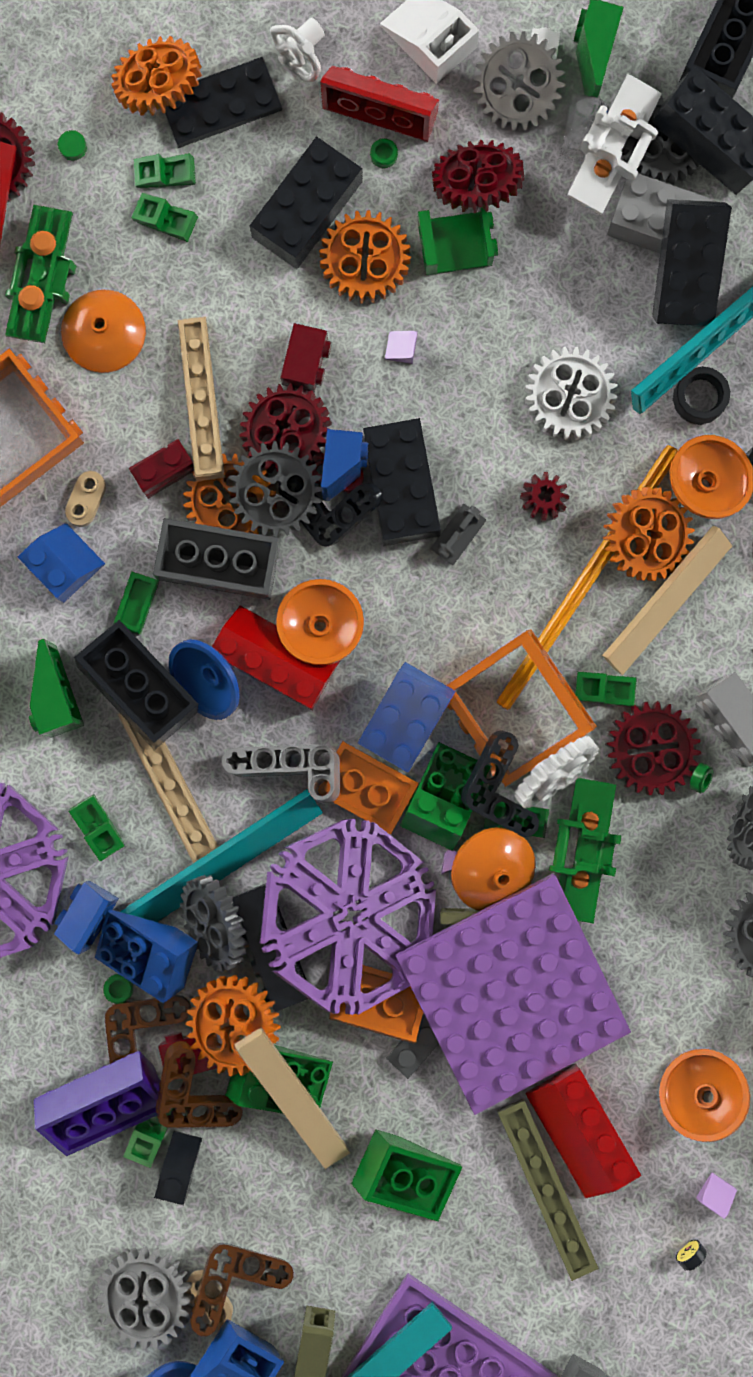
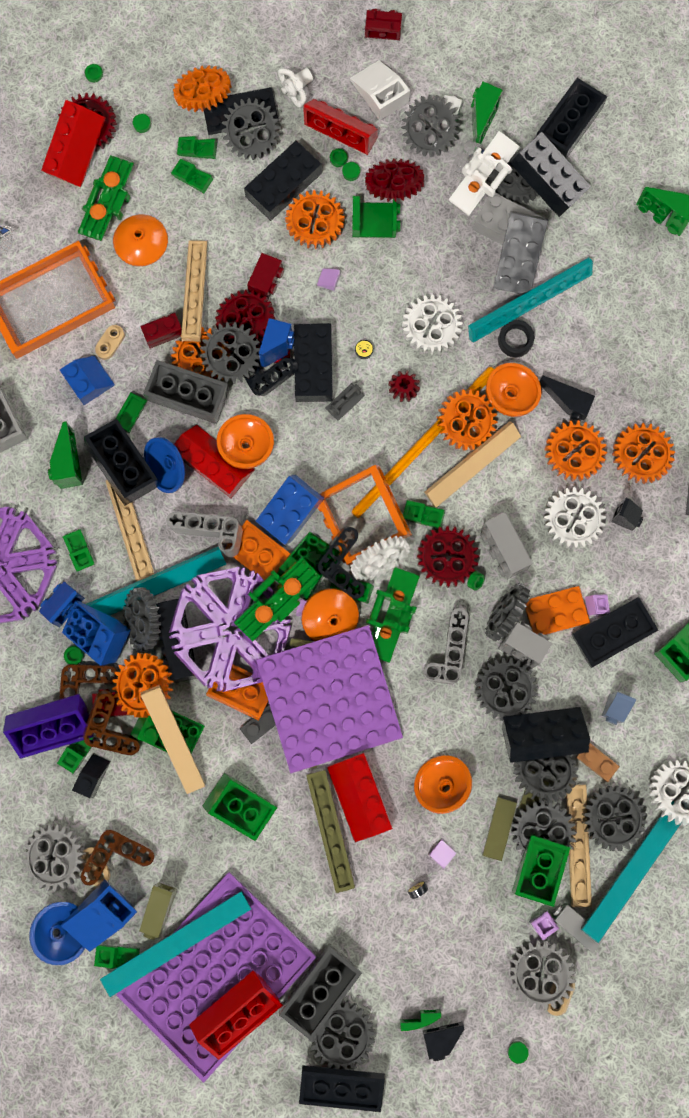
camera: 10 degrees right, 5 degrees down
(230, 104) = (256, 145): none -> dark grey gear
(407, 171) = (351, 171): none -> green tile
(419, 865) = (281, 603): none -> green piece
(473, 448) = (364, 349): none -> light yellow tile
(680, 883) = (451, 645): none -> light grey beam

